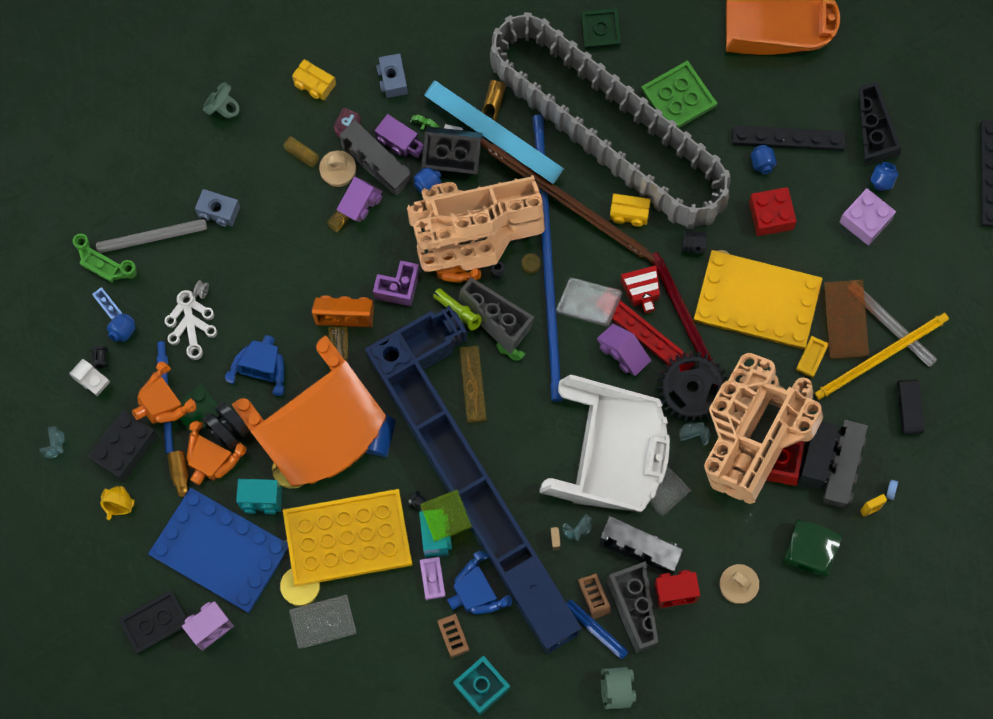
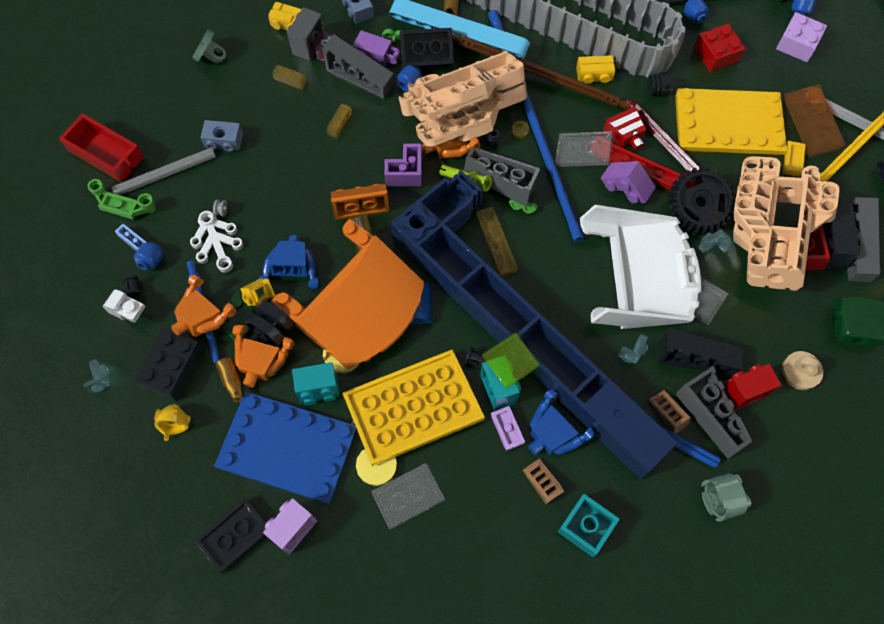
camera: 15 degrees left, 5 degrees down
(93, 198) = (101, 147): none -> red piece
(213, 387) = (250, 296): none -> yellow window
(327, 106) = (305, 32): none -> dark grey brick
(337, 168) = (325, 84): tan tile -> none
(358, 199) = (352, 100): medium lavender brick -> none
(555, 539) = (616, 364): tan tile -> none

